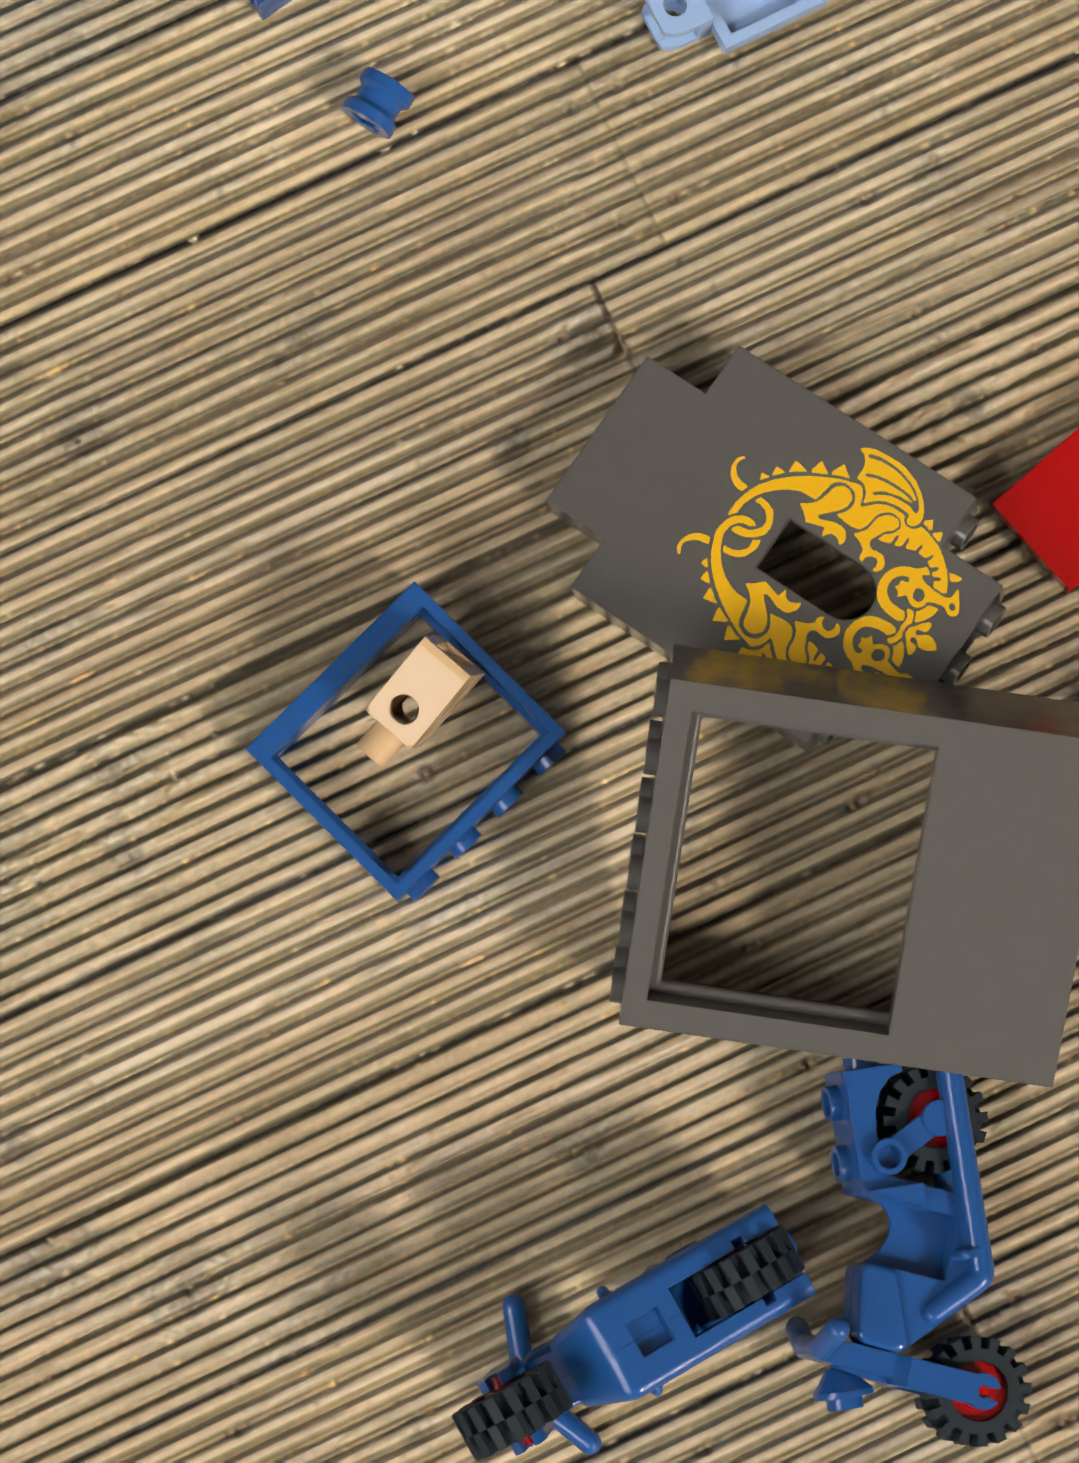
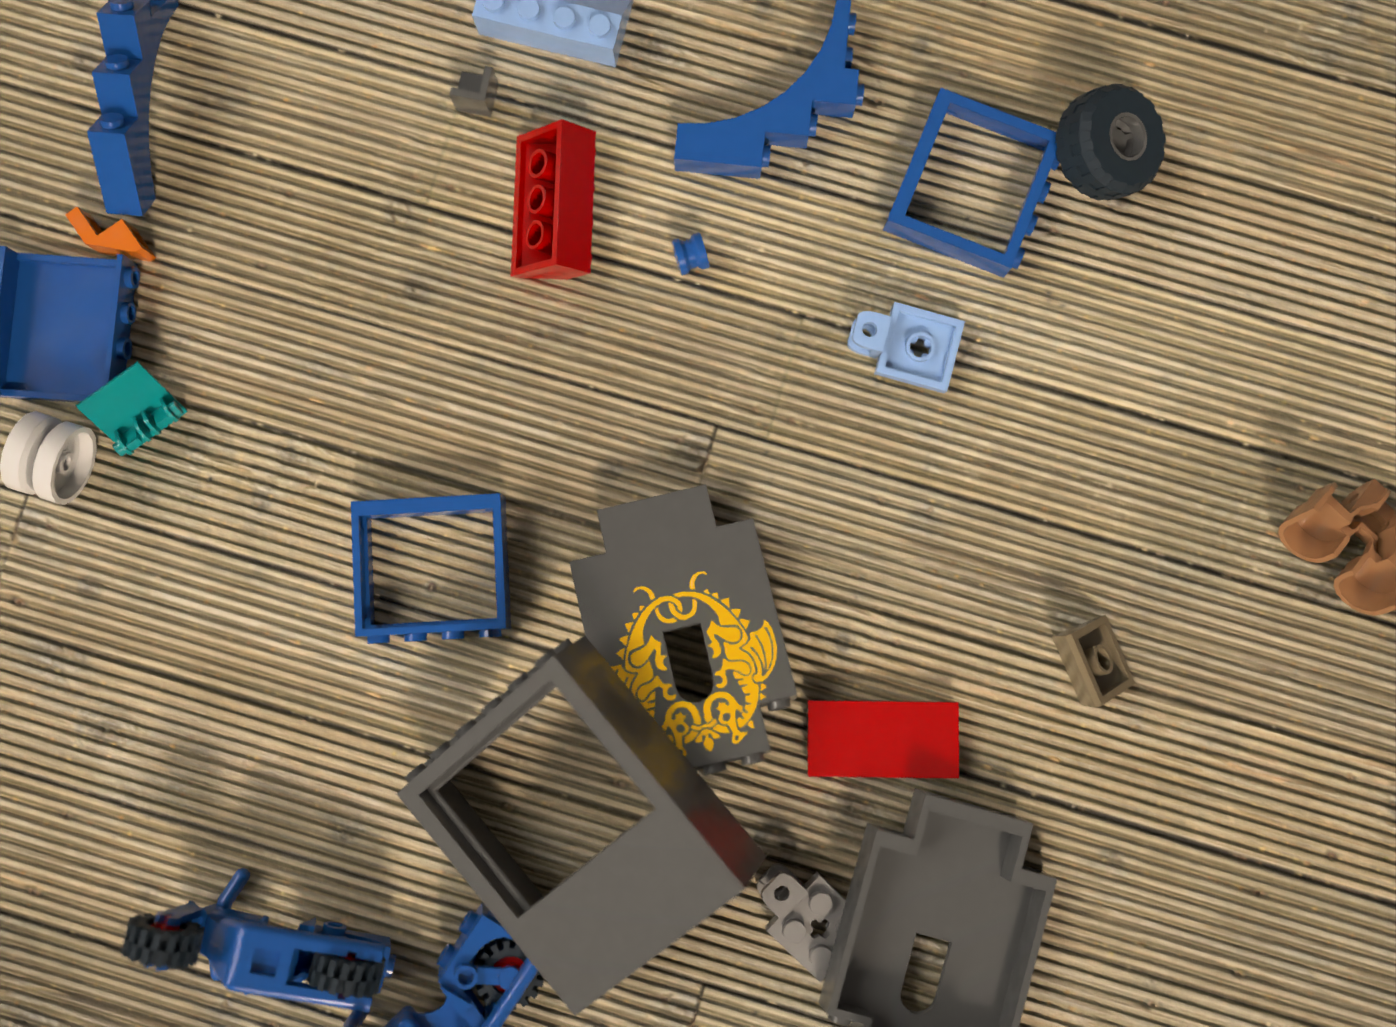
camera: 45 degrees right, 0 degrees up
(156, 185) = (553, 202): none -> red slope
(438, 681) = (447, 550): tan torso -> none

